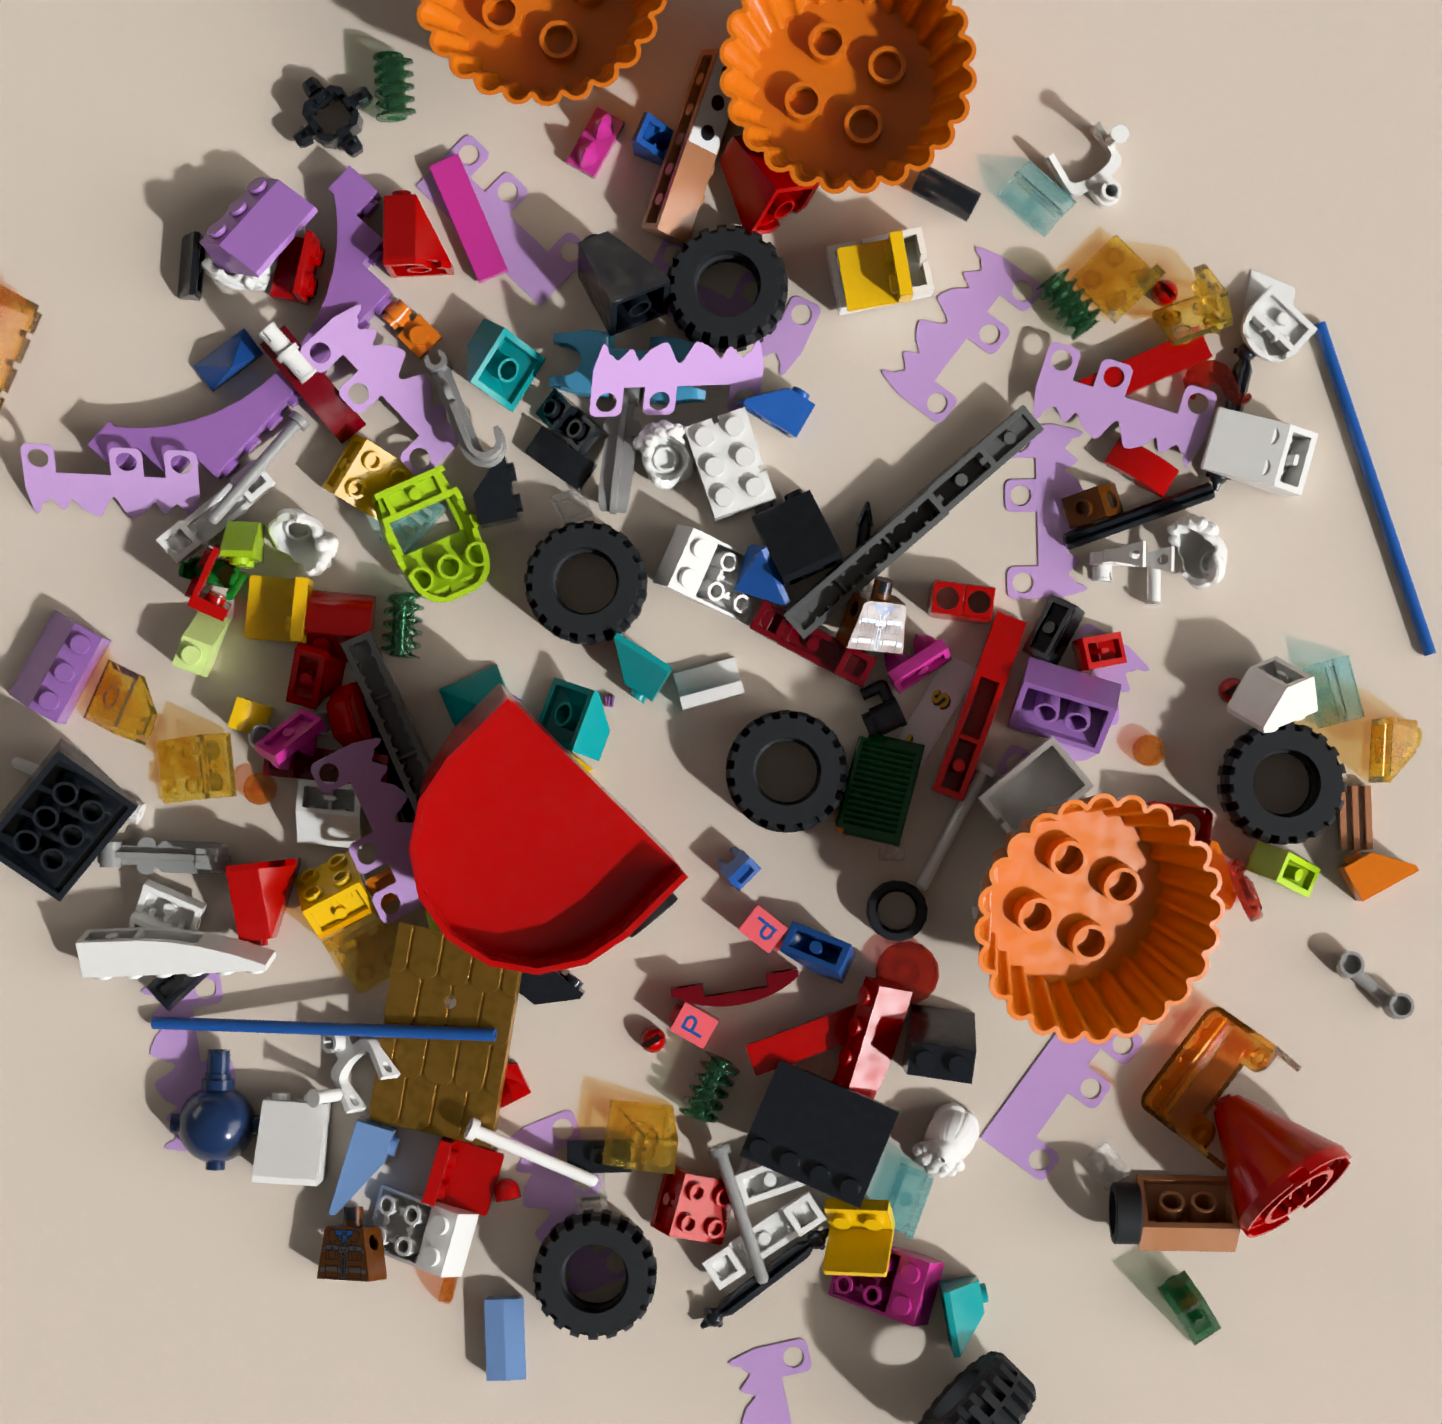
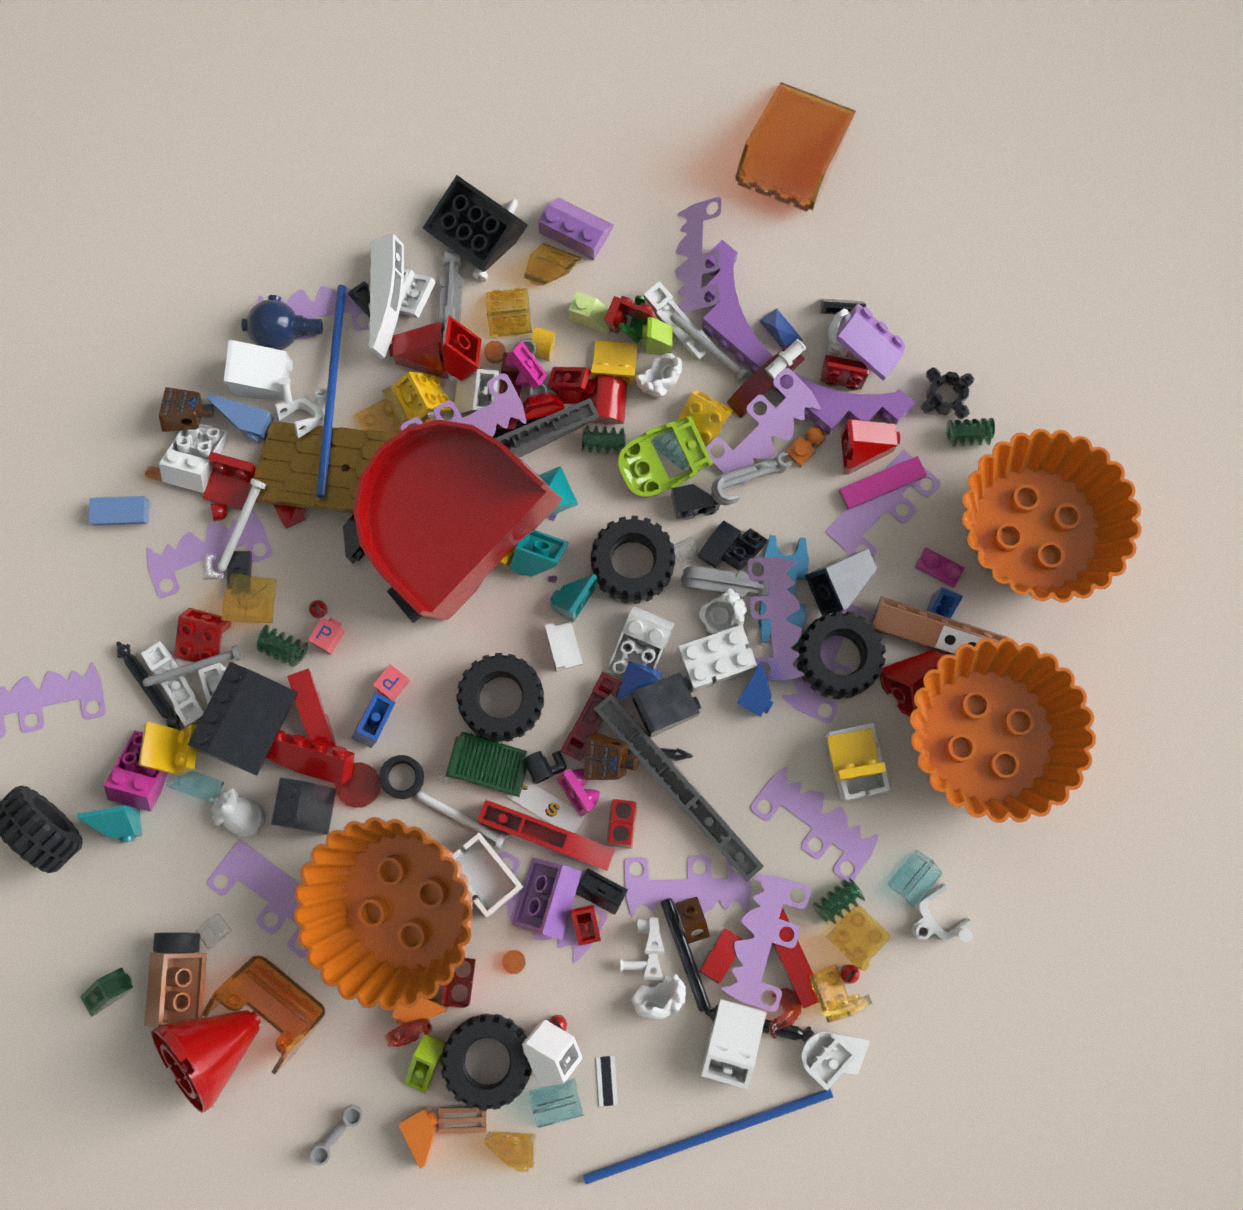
camera: 80 degrees right, 10 degrees down
(265, 835) = (460, 349): none -> red slope
(501, 364) = (782, 503): teal slope -> none
(585, 1316) = (134, 552): black tyre -> none
(695, 992) = (347, 637): dark red slope -> none
(739, 869) = (433, 666): blue tile -> none
(946, 192) = (916, 811): black pin -> none
(1304, 624) = (606, 1081): none -> sticker

